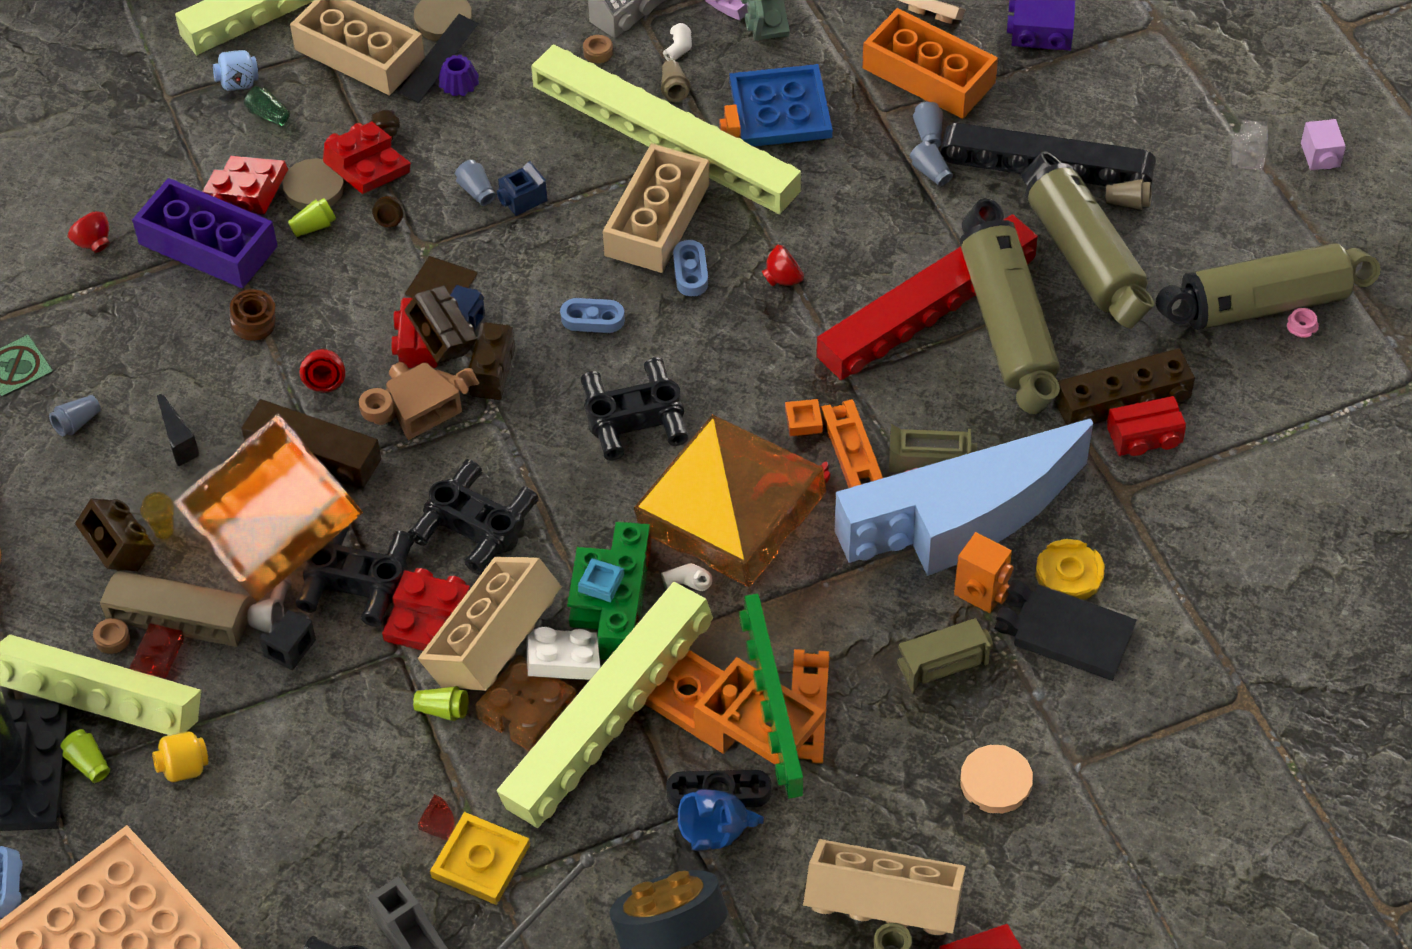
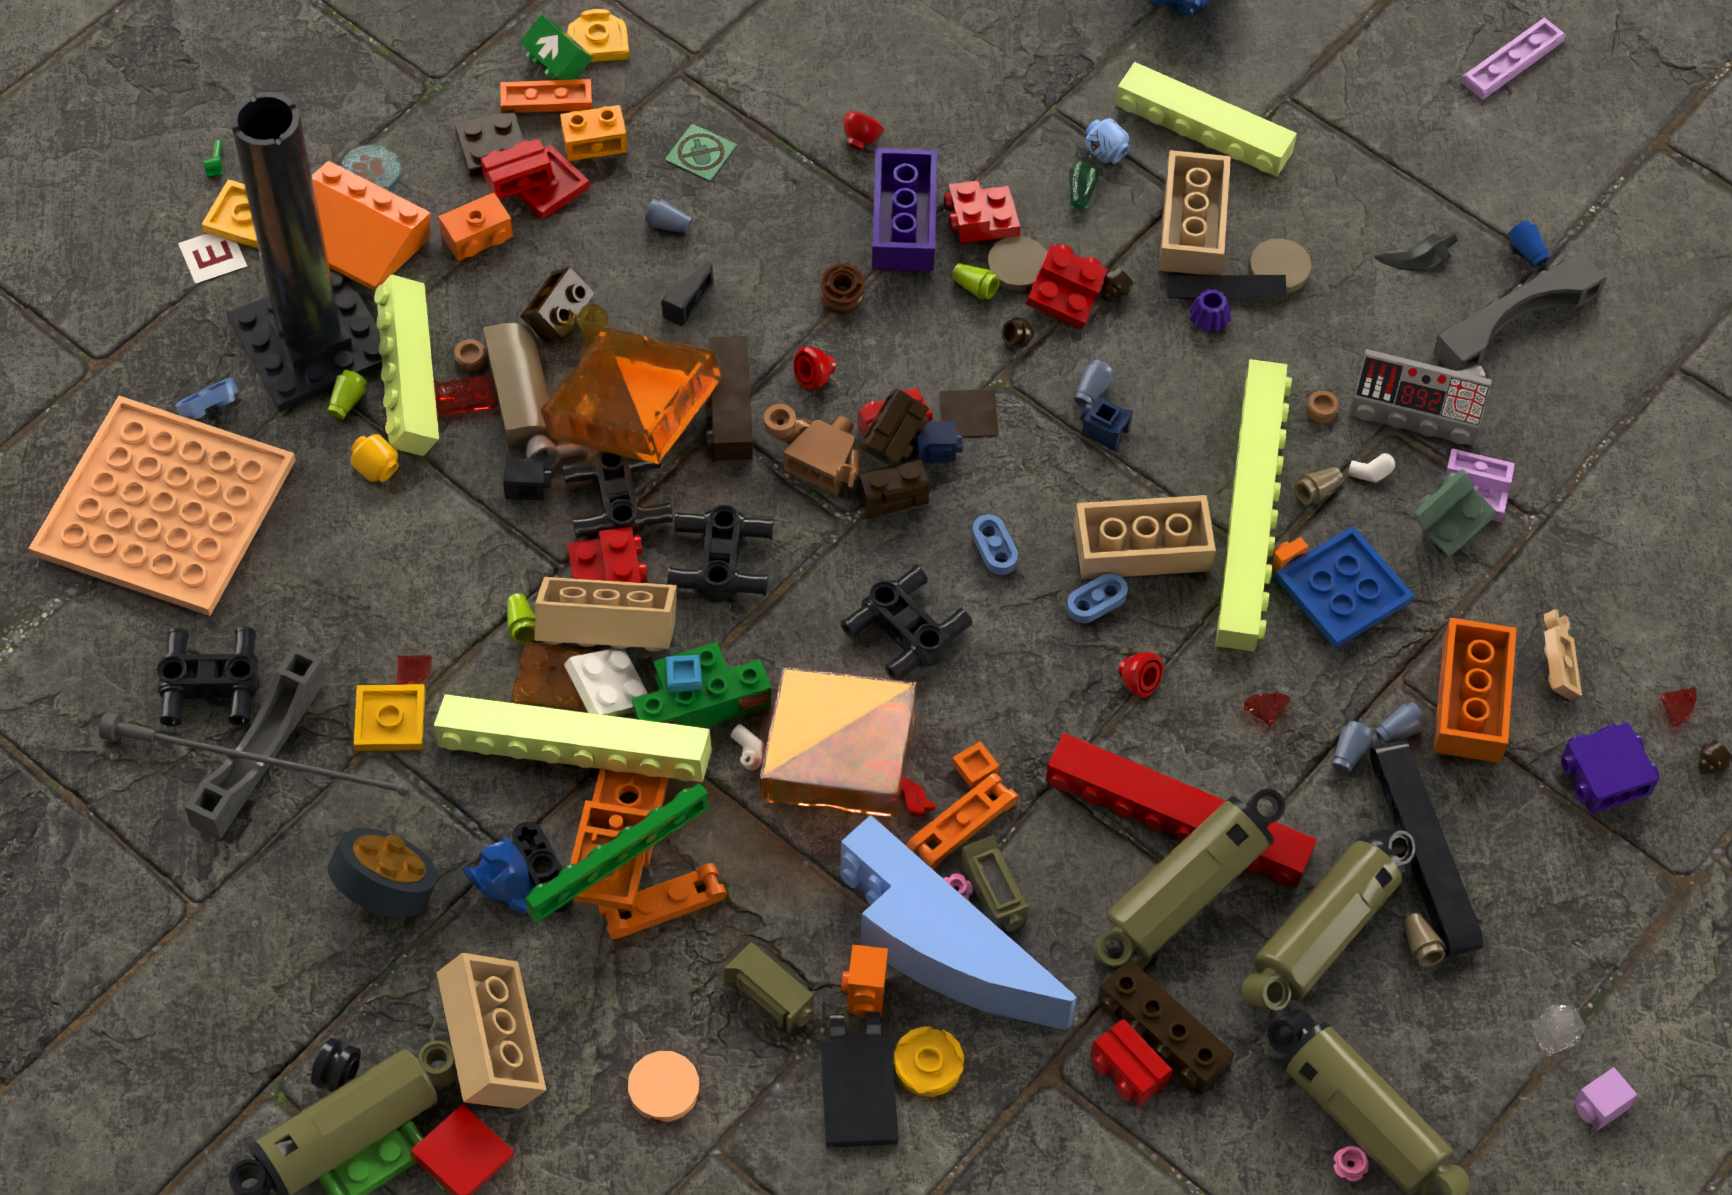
camera: 60 degrees right, 5 degrees up
(859, 203) = (1267, 706): none -> clear red tile

